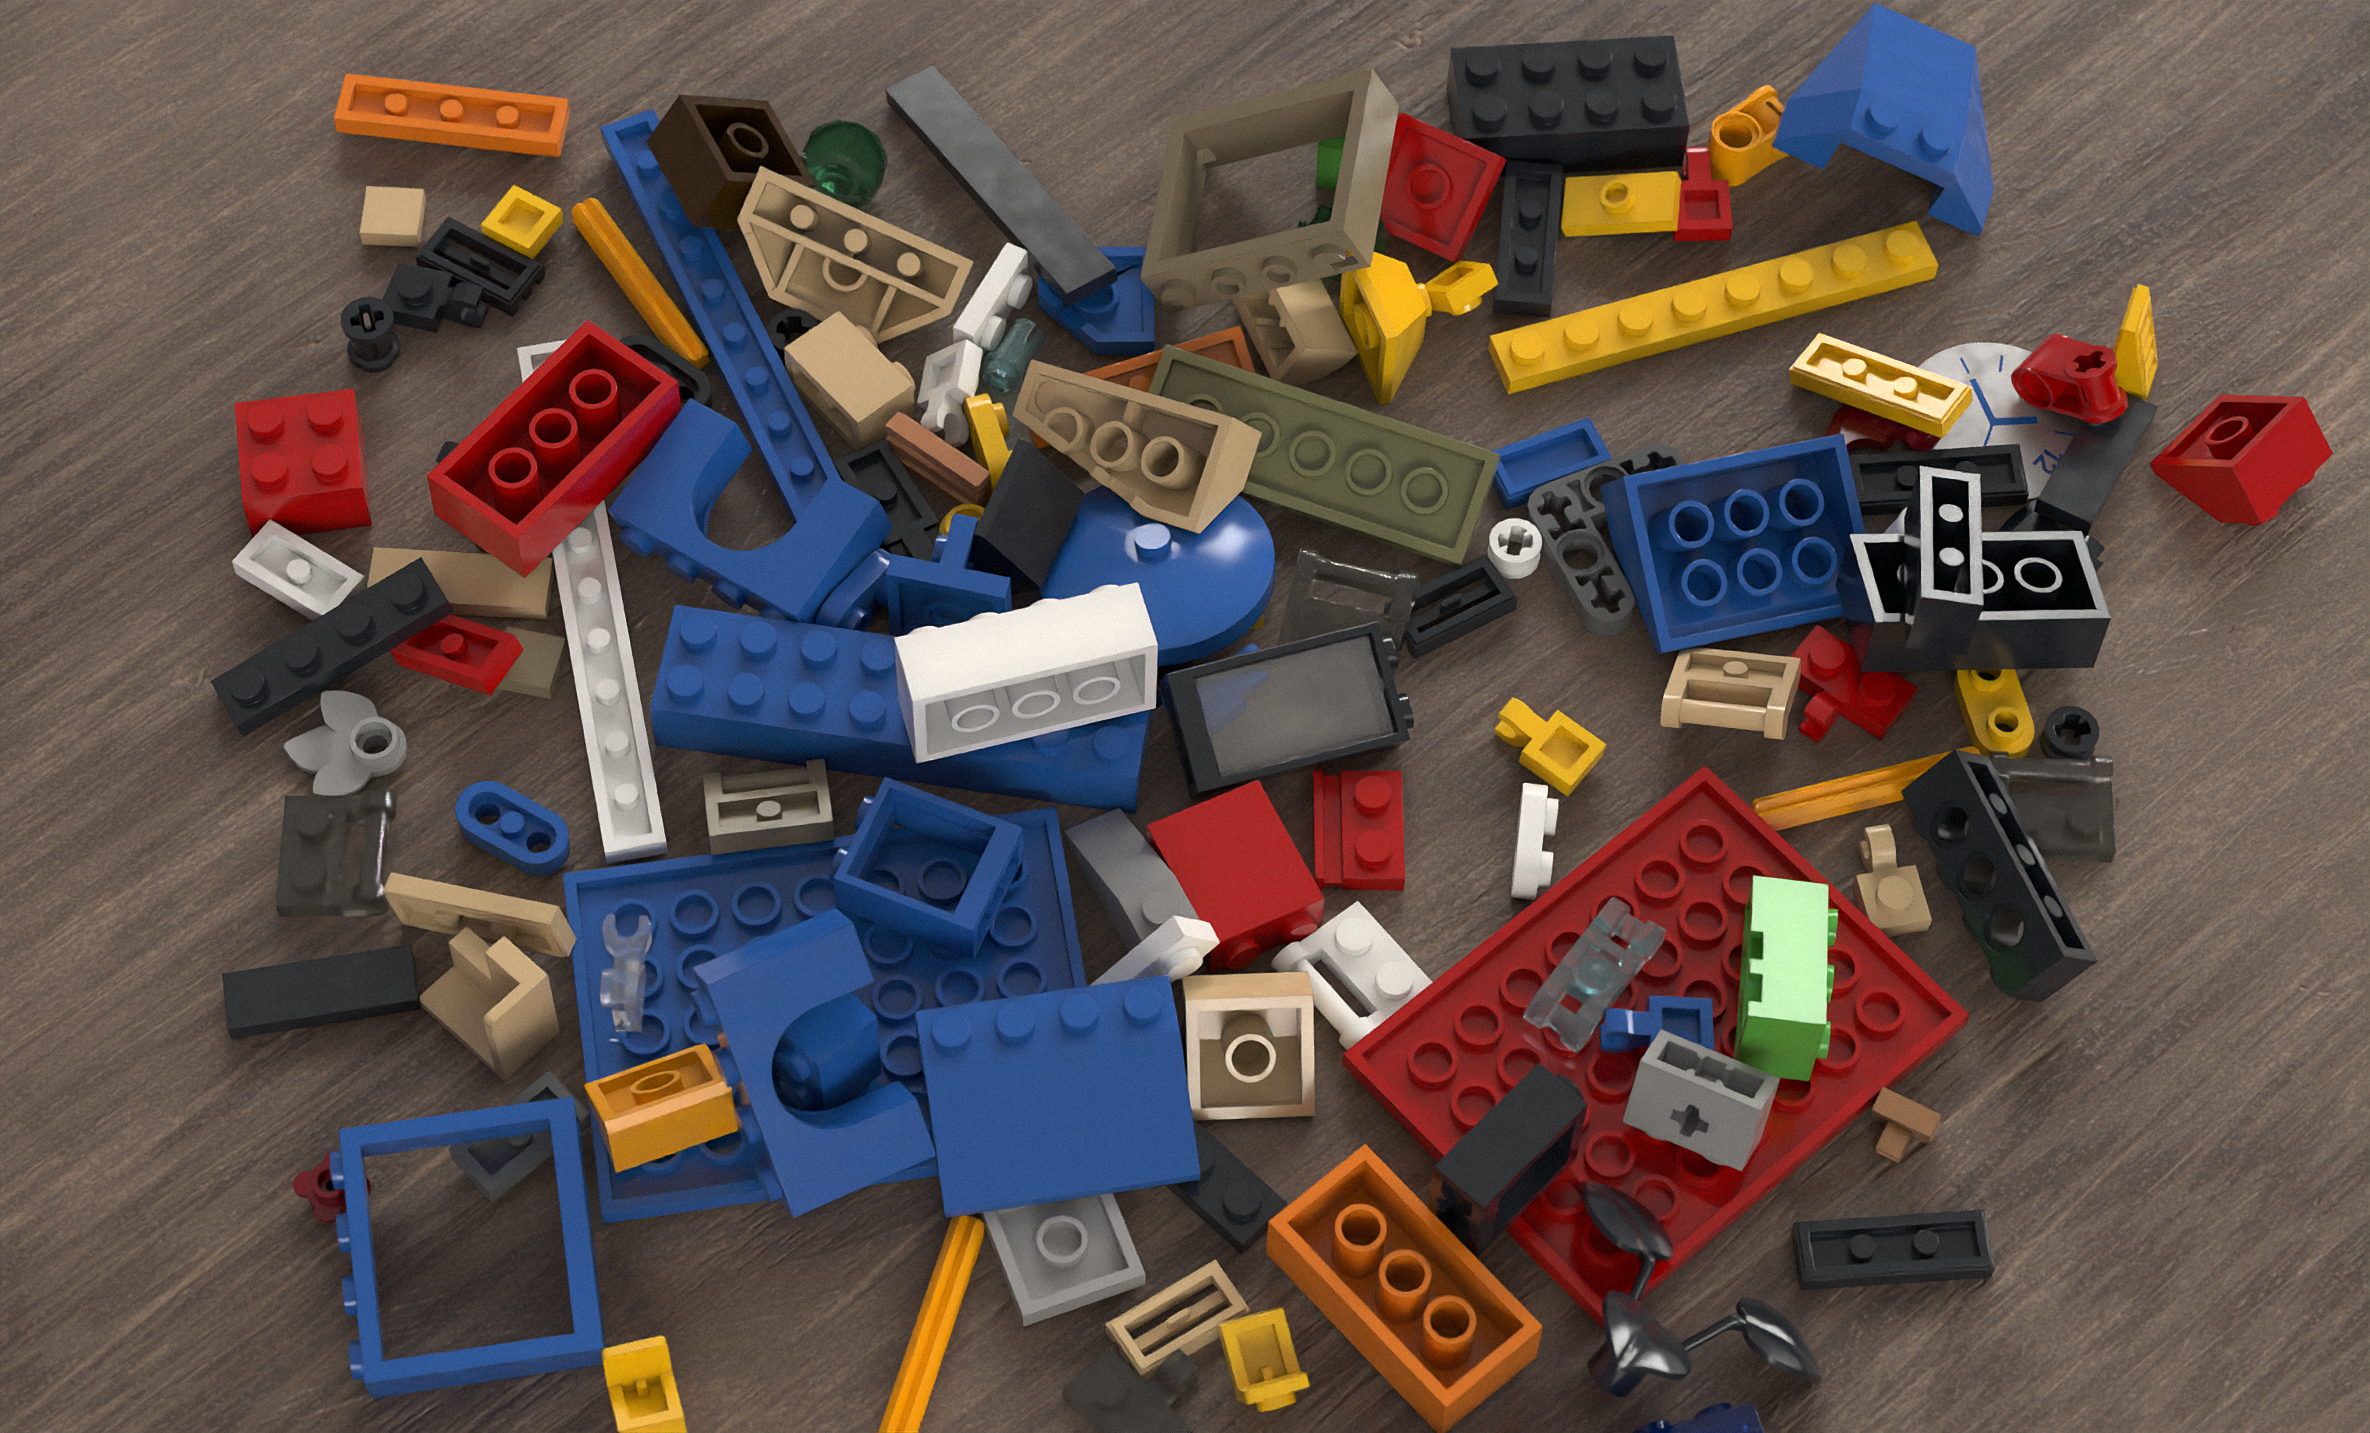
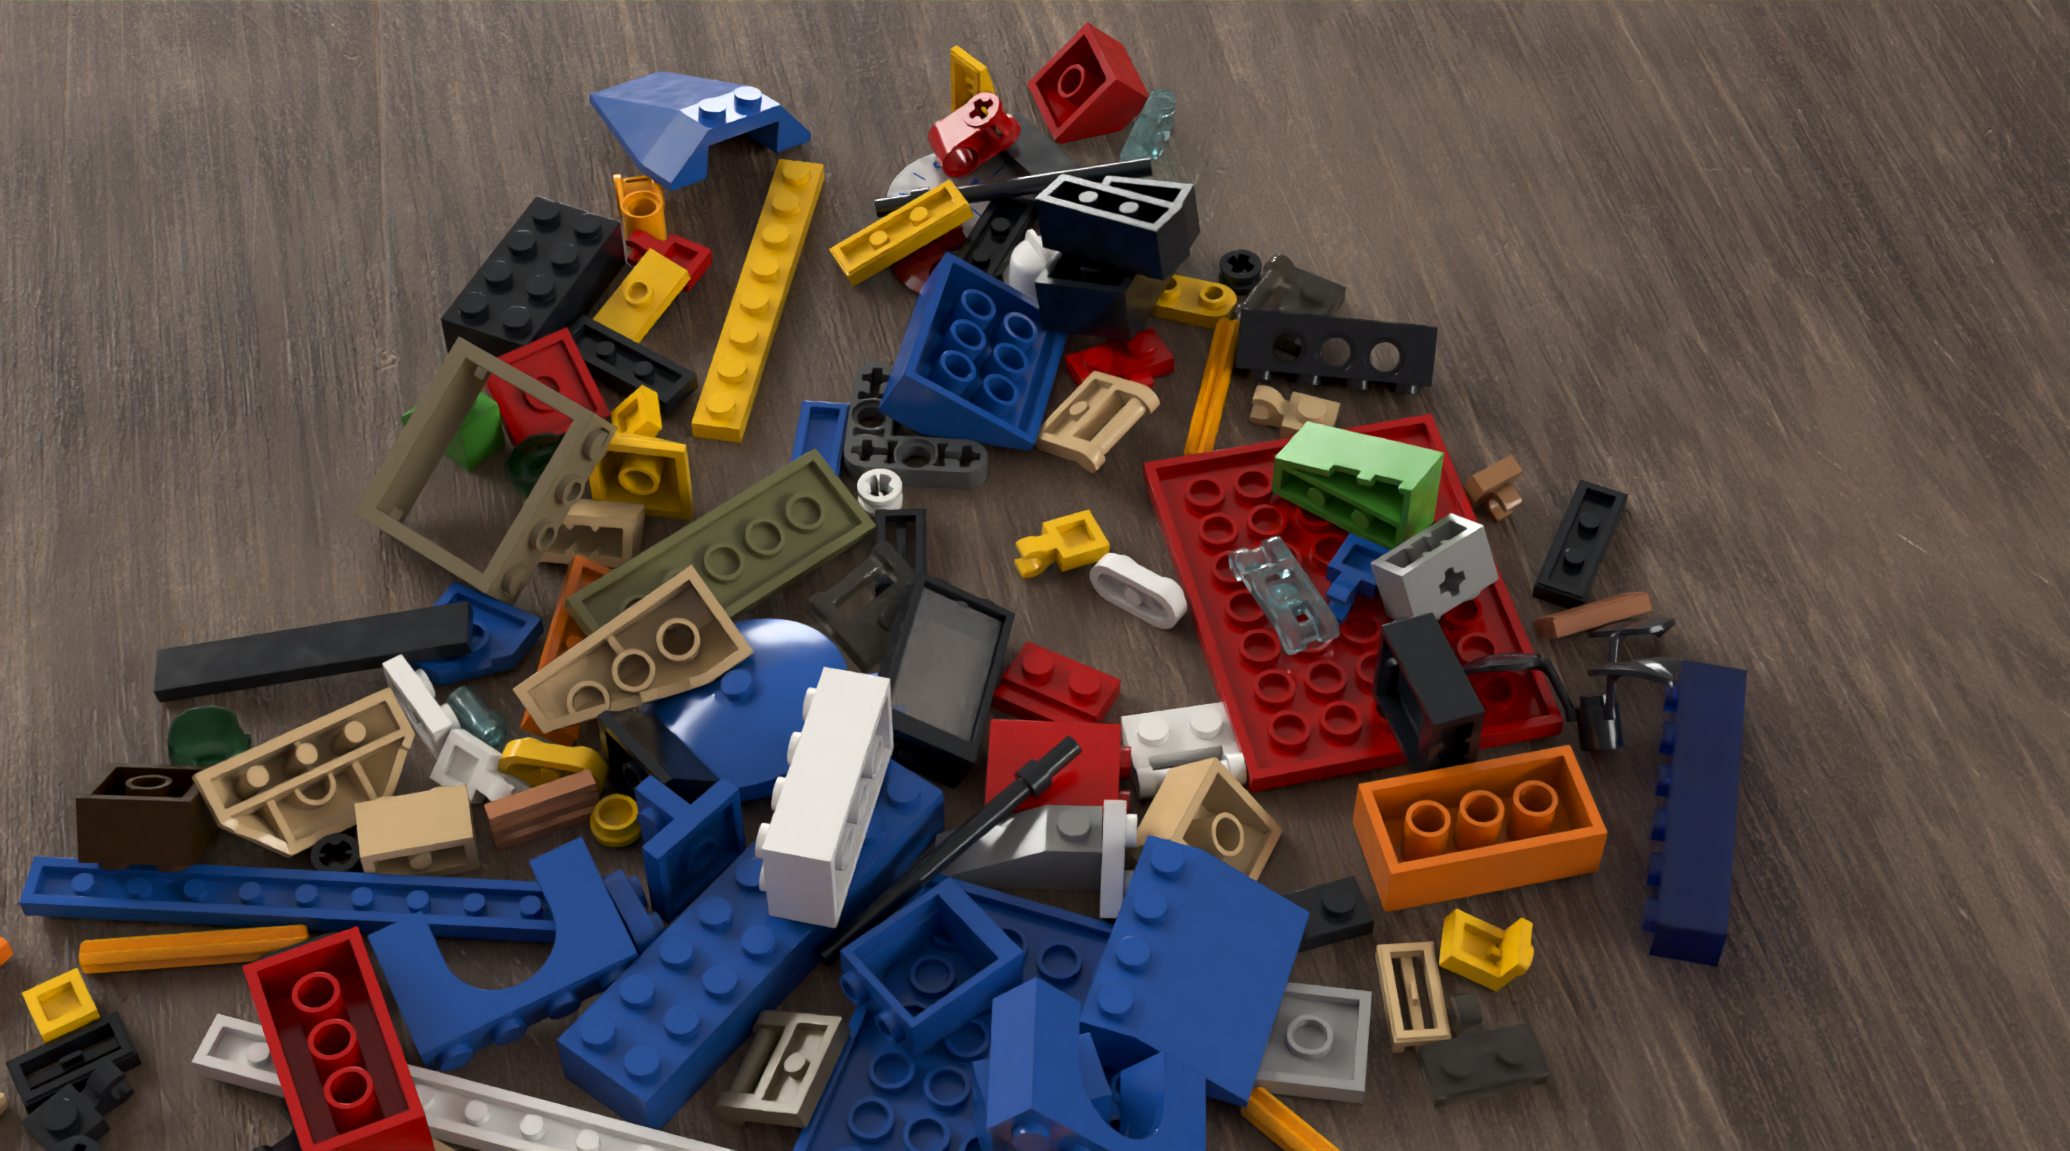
camera: 60 degrees left, 10 degrees down
(882, 476) = (511, 852): black hinge -> none
(1190, 846) = (1030, 781): none -> black bar
(1780, 1295) = (1592, 615): none -> nougat tile
(2027, 464) = (1023, 185): none -> black bar
(2197, 550) = (1151, 128): none -> clear light blue plate

